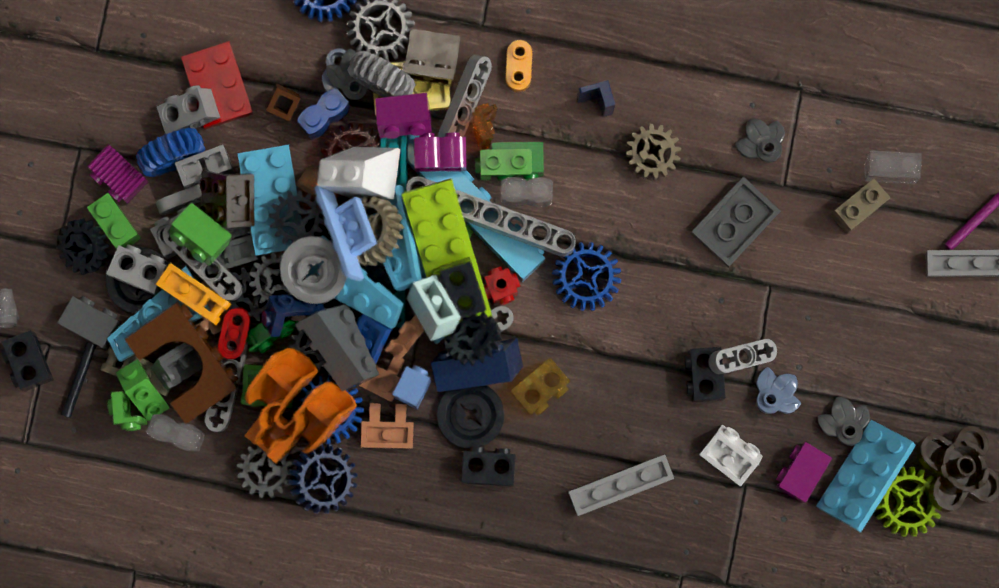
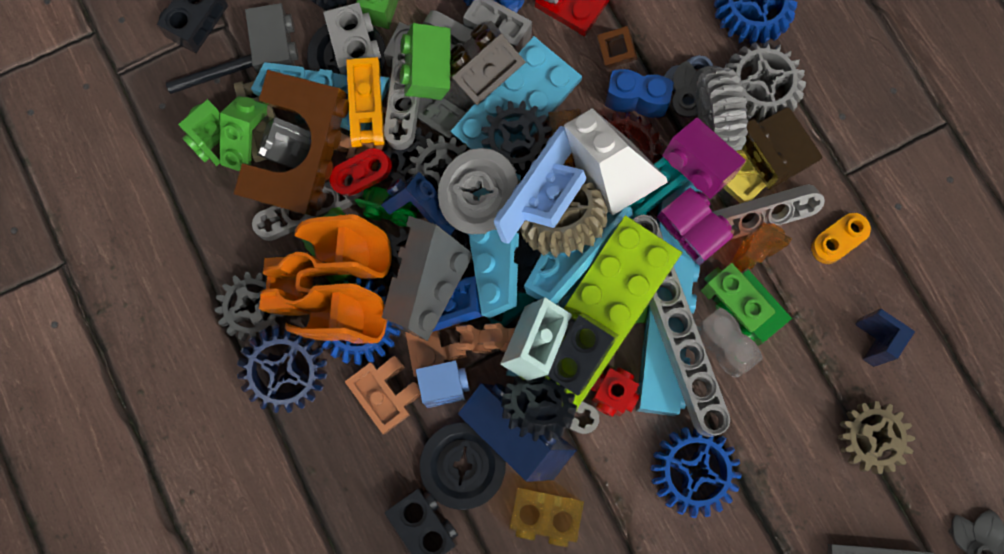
camera: 55 degrees right, 5 degrees down
(180, 434) = (222, 205): clear brick -> none

